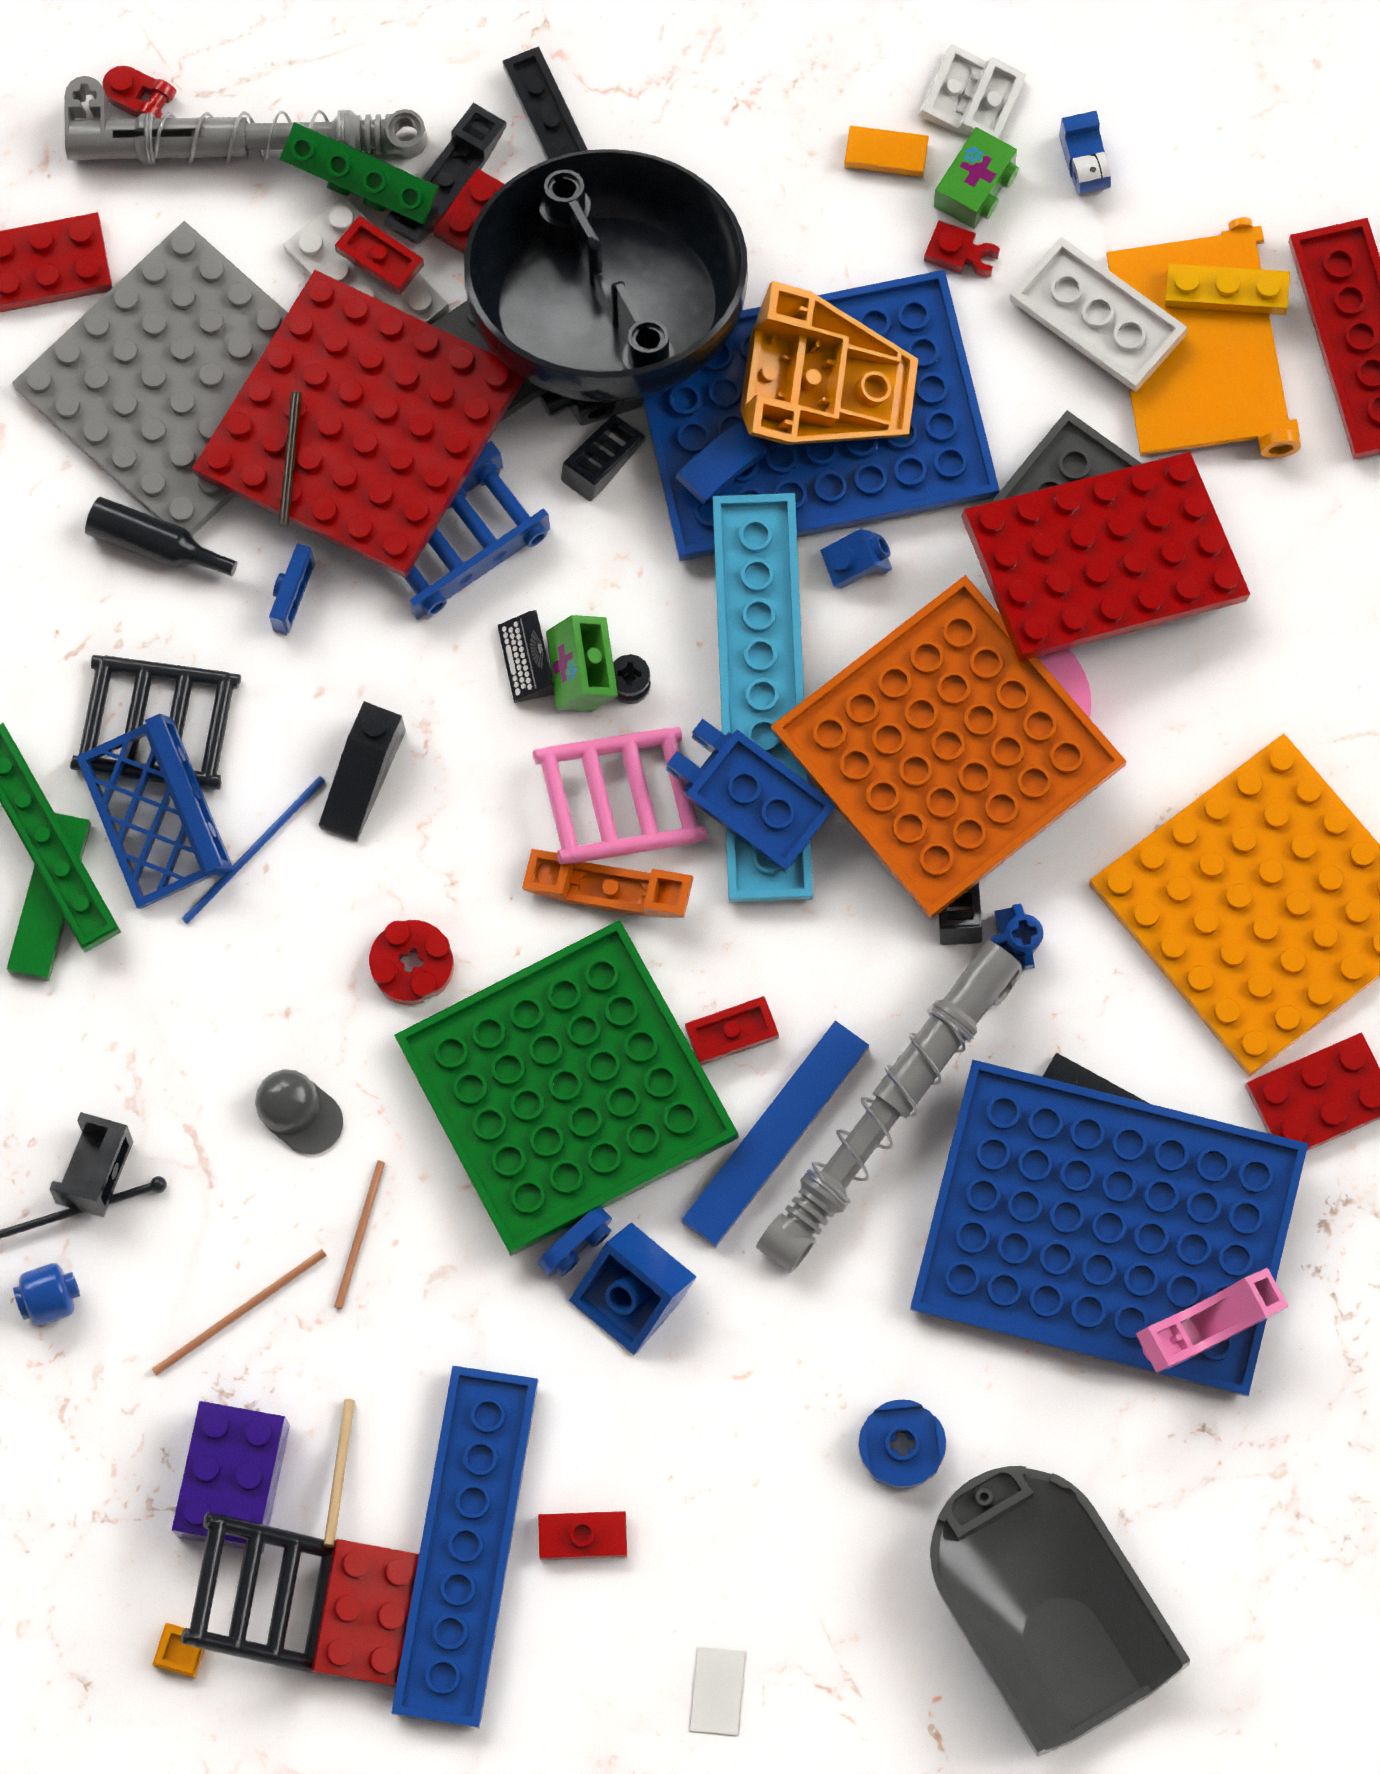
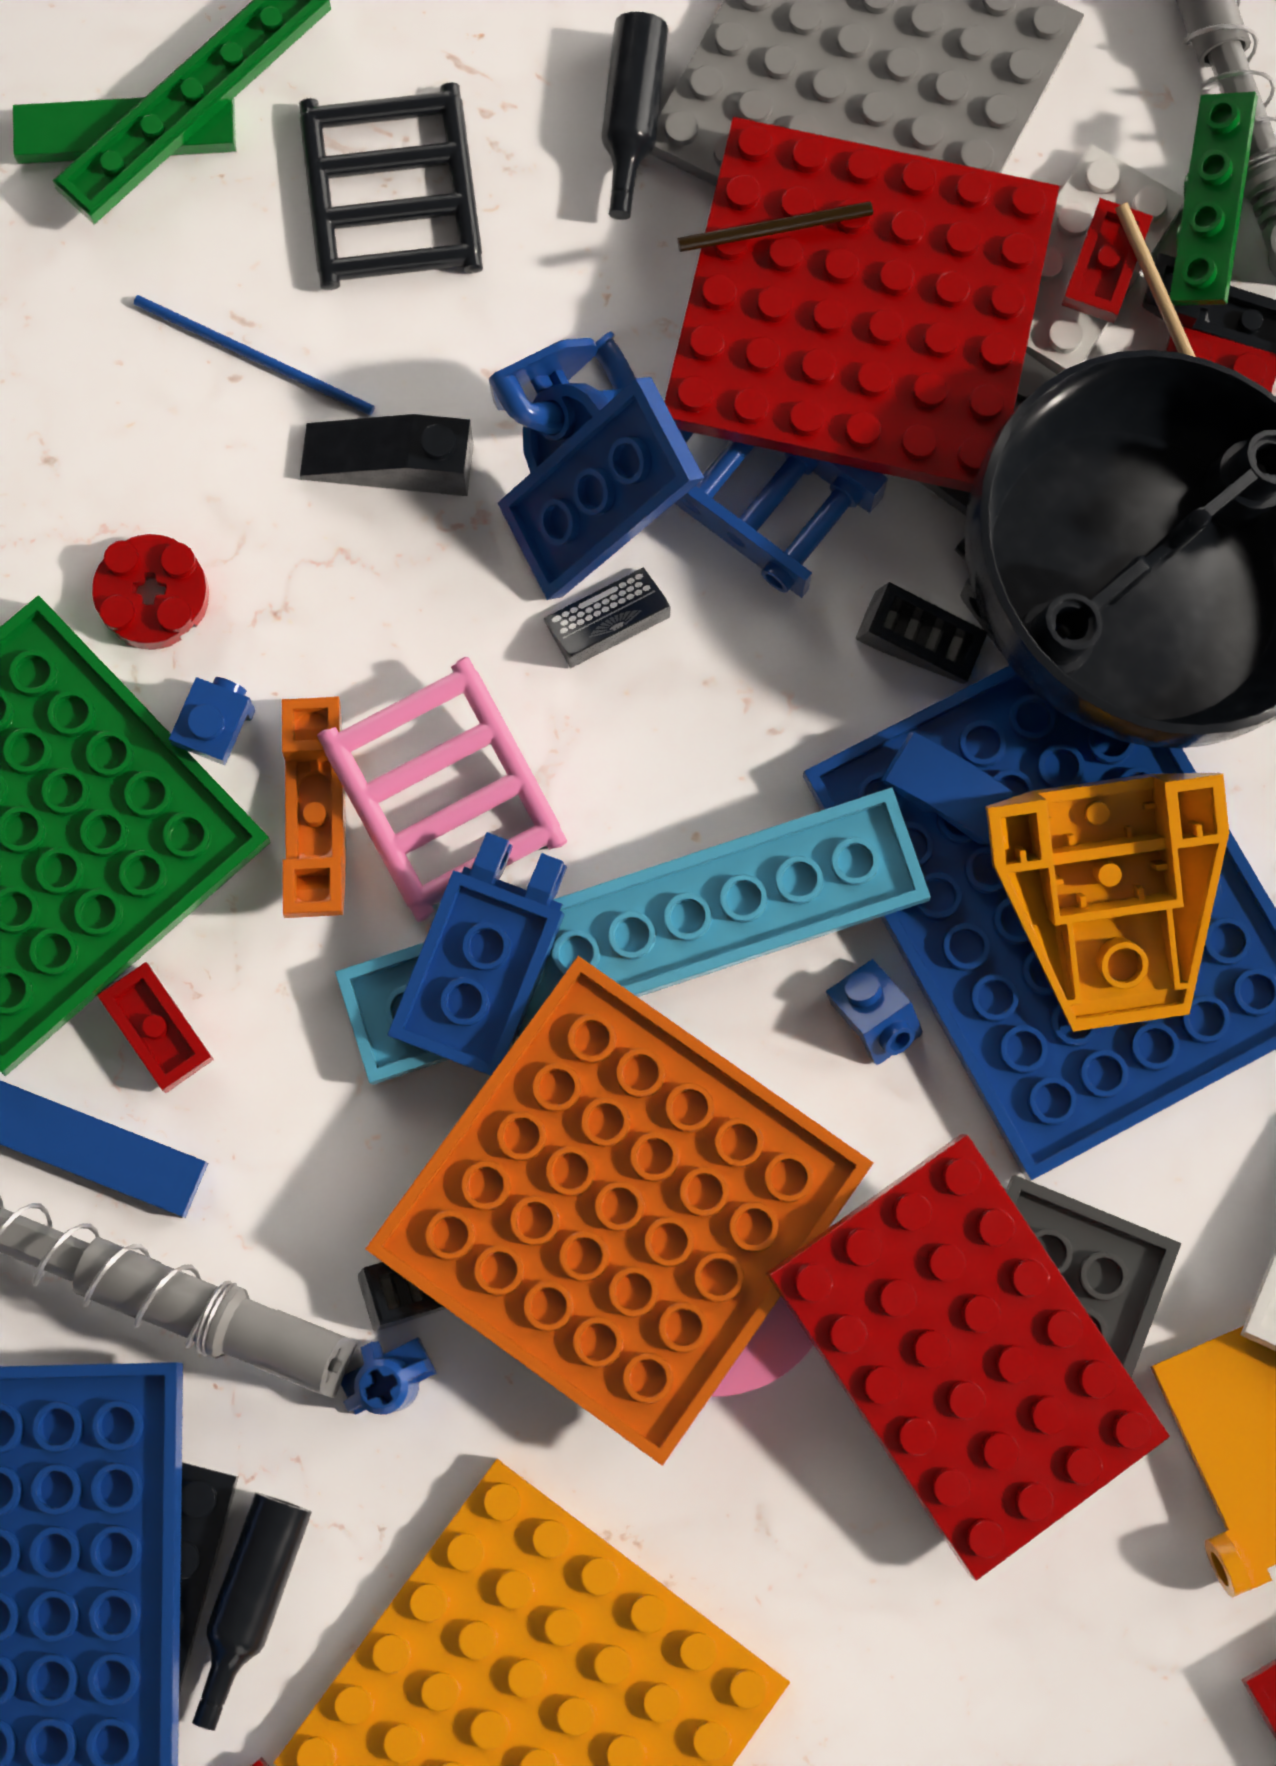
camera: 70 degrees right, 5 degrees up
(187, 798) = (284, 241): blue fence -> none
(290, 588) = (612, 293): blue plate -> none
(403, 228) = (1153, 279): none -> tan axle
(438, 625) = (594, 459): none -> blue plate
(524, 934) = (212, 719): none -> blue bracket
(581, 663) = (609, 685): bright green brick -> none
(631, 689) = (614, 769): black wheel -> none
(1138, 1060) = (249, 1596): none -> black piece

